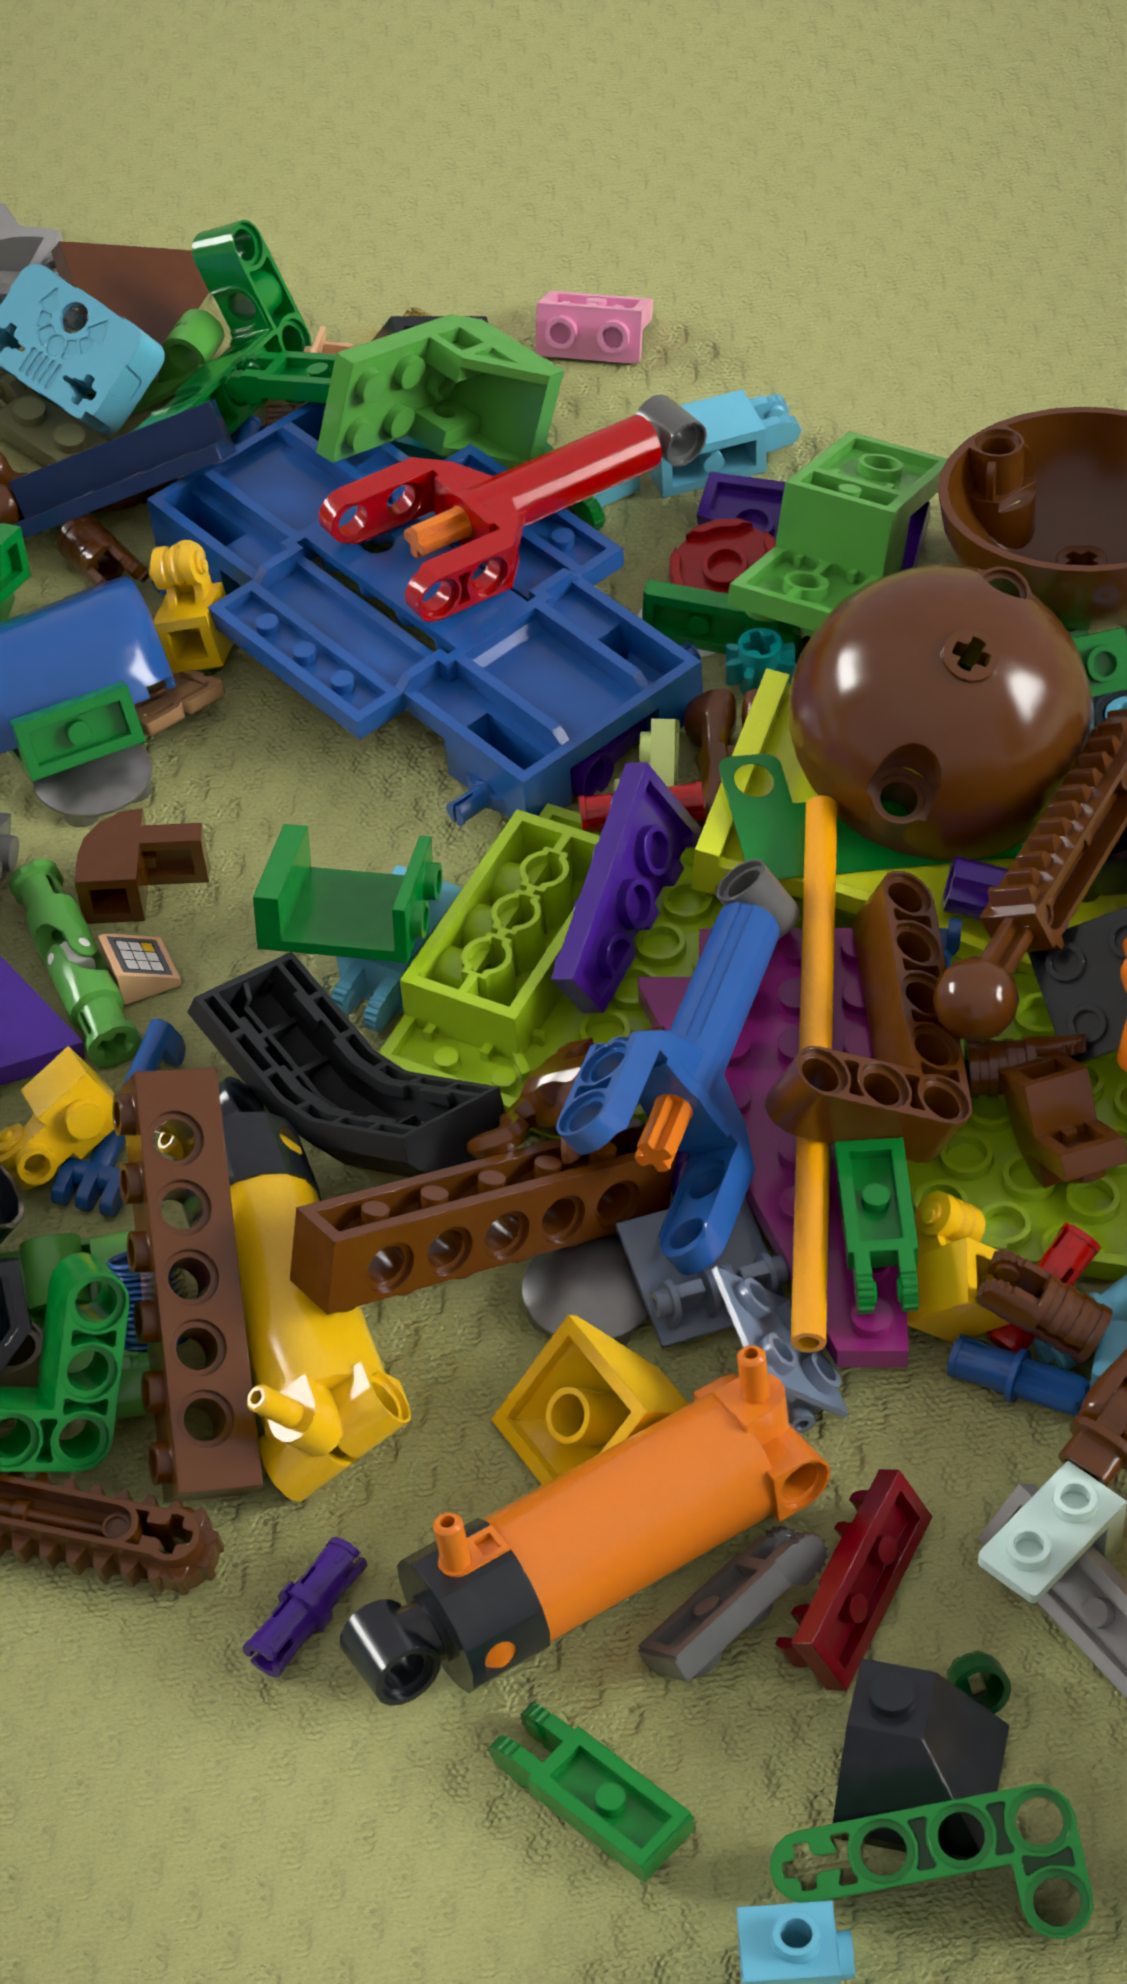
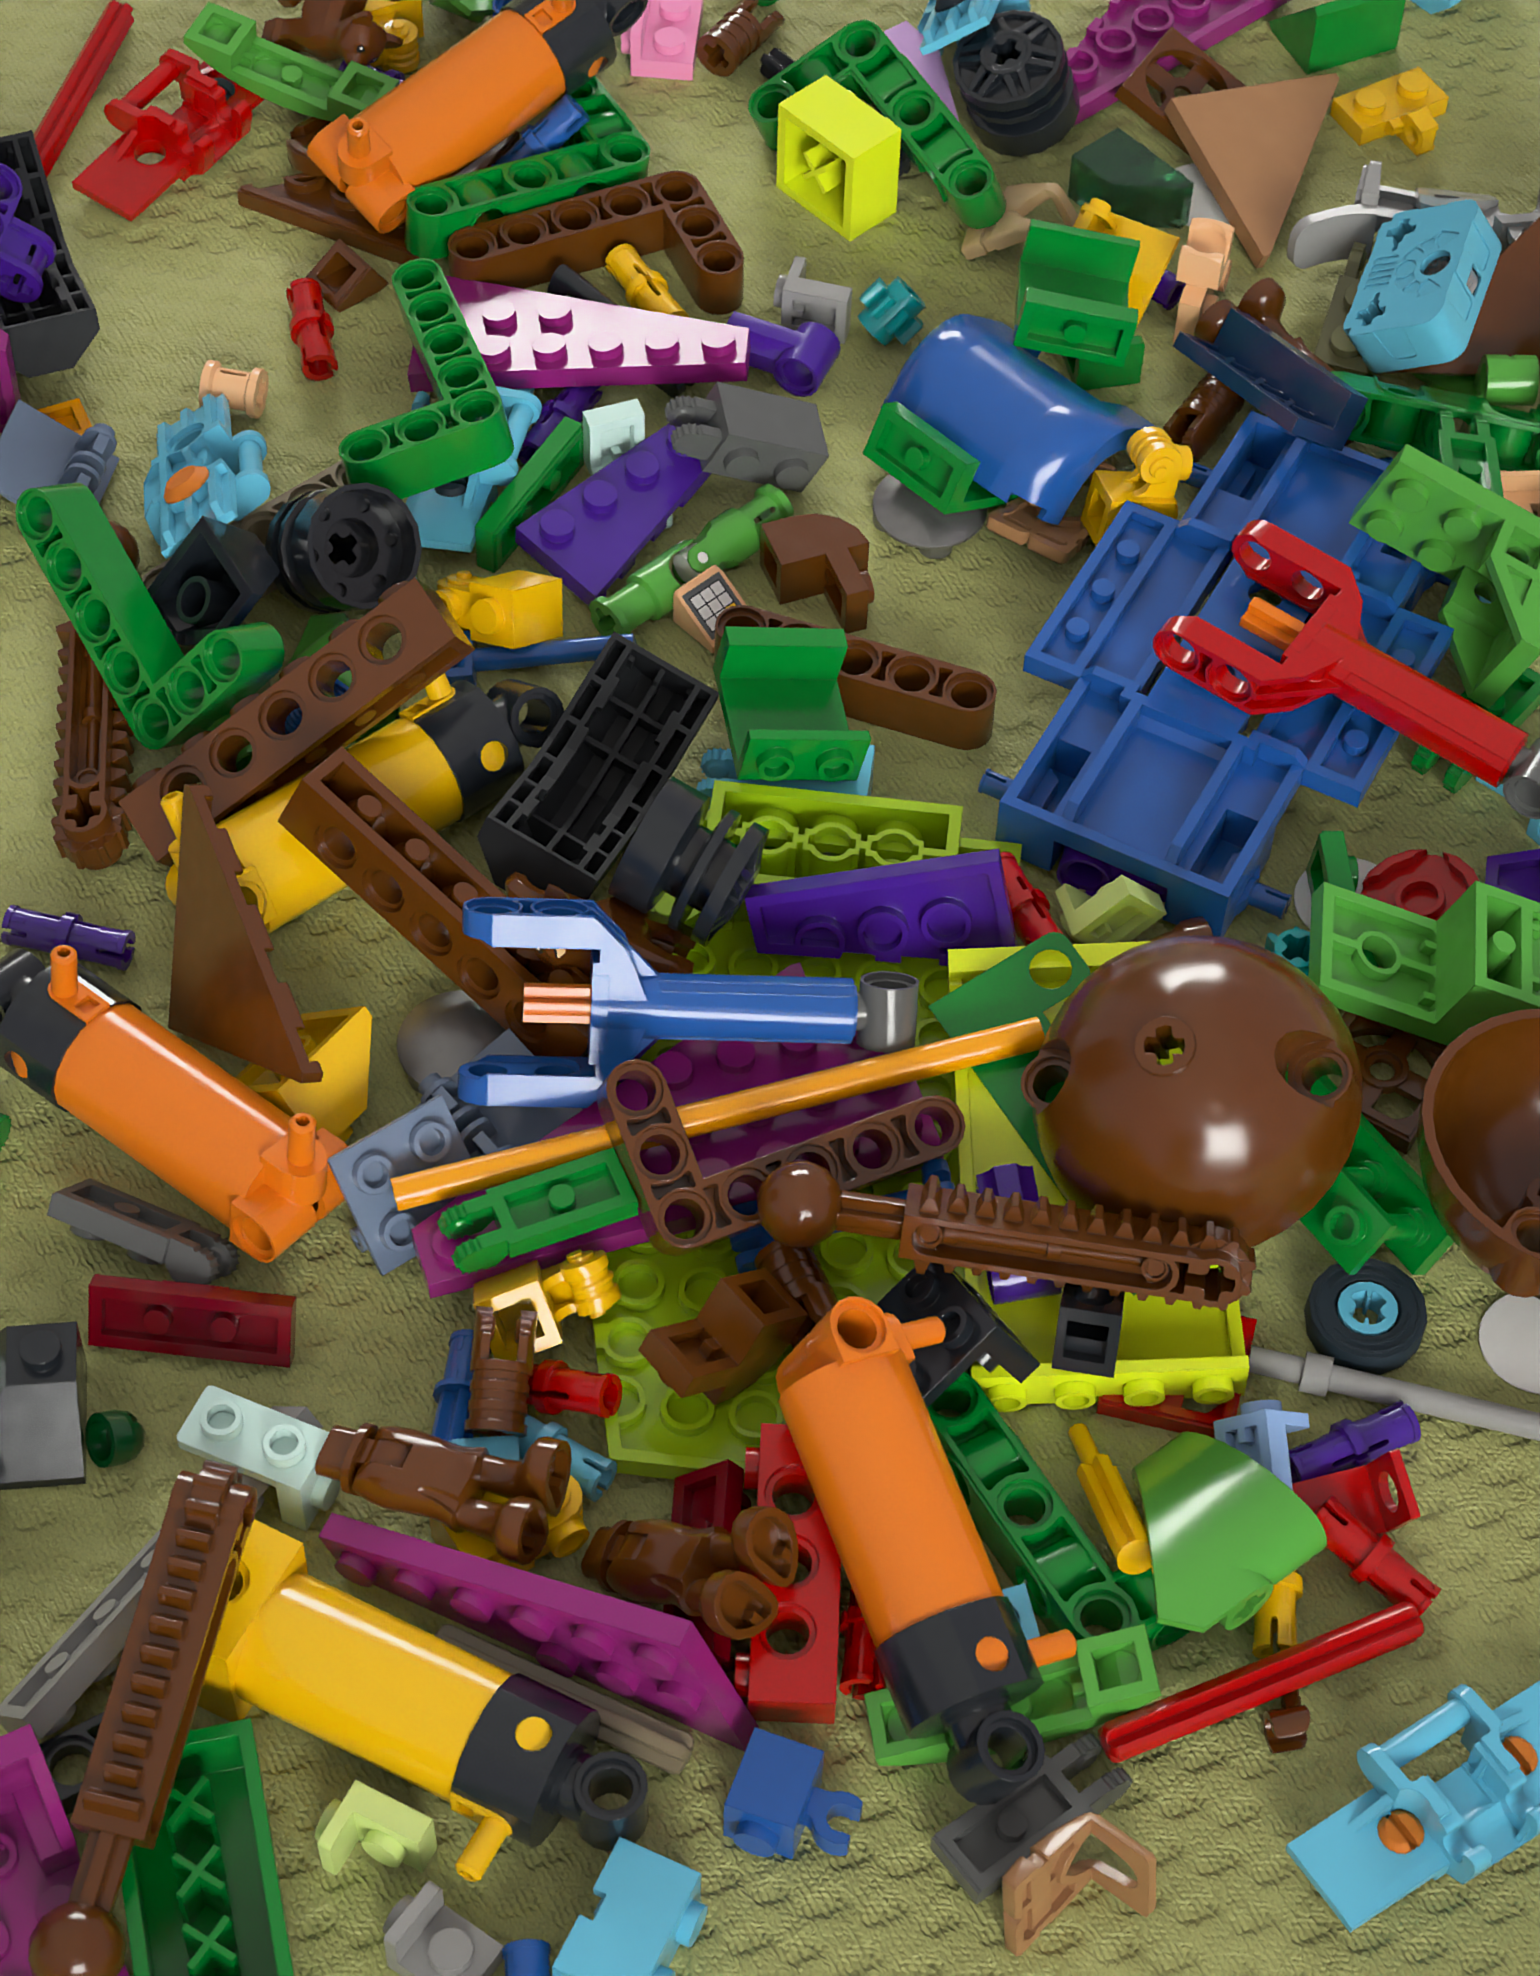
camera: 65 degrees right, 5 degrees up
(345, 825) = (897, 686): none -> reddish brown beam
(469, 1421) = (220, 962): none -> reddish brown tile
(533, 992) = (689, 861): none -> black wheel

